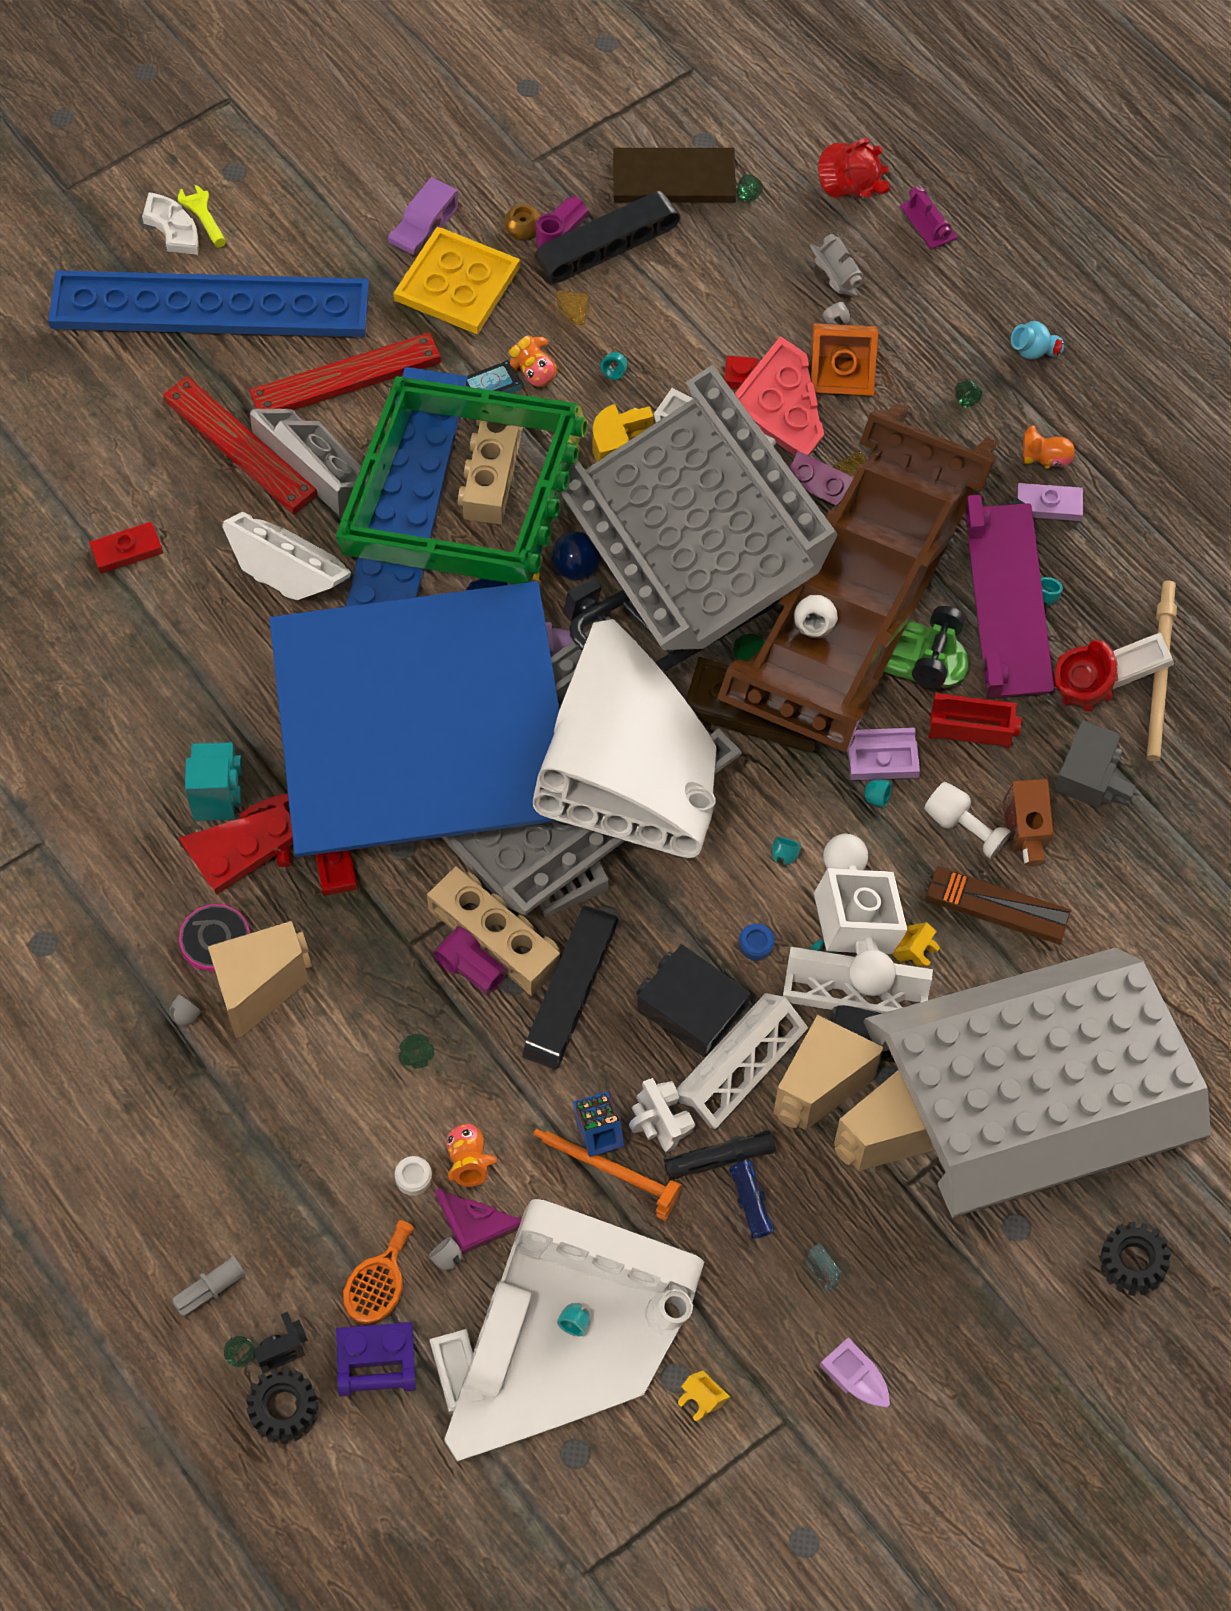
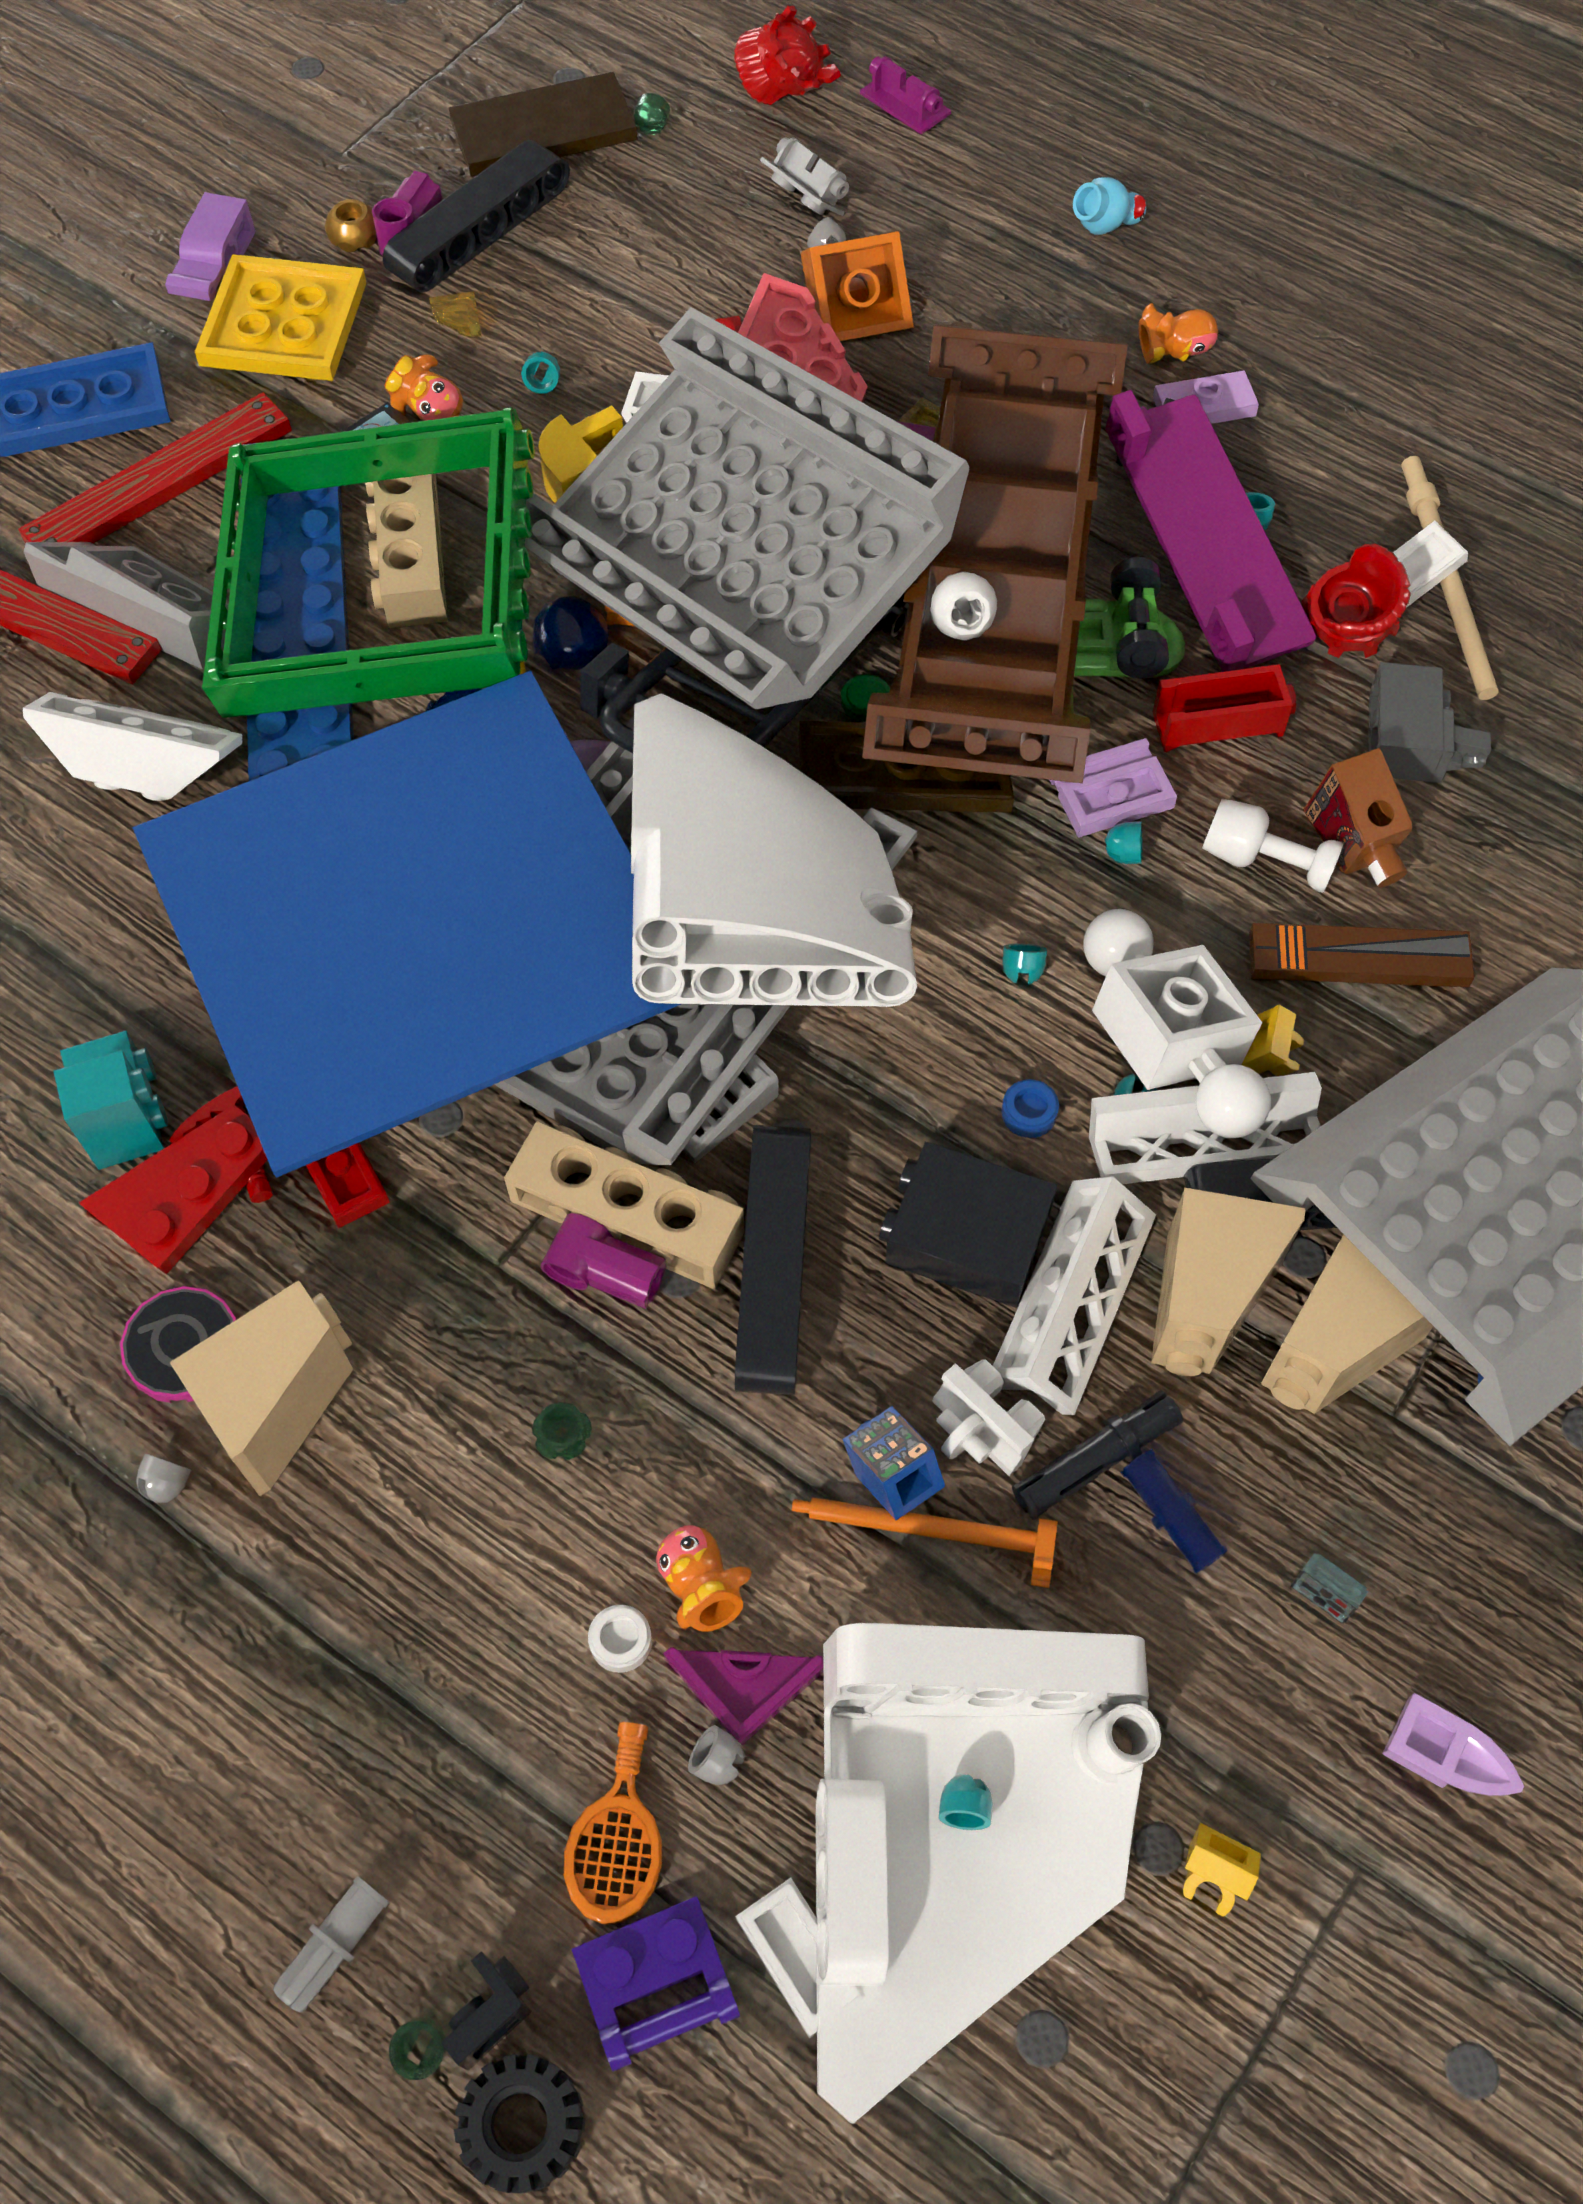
camera: 15 degrees left, 0 degrees up
(970, 399) = (1045, 284): clear green hinge -> none

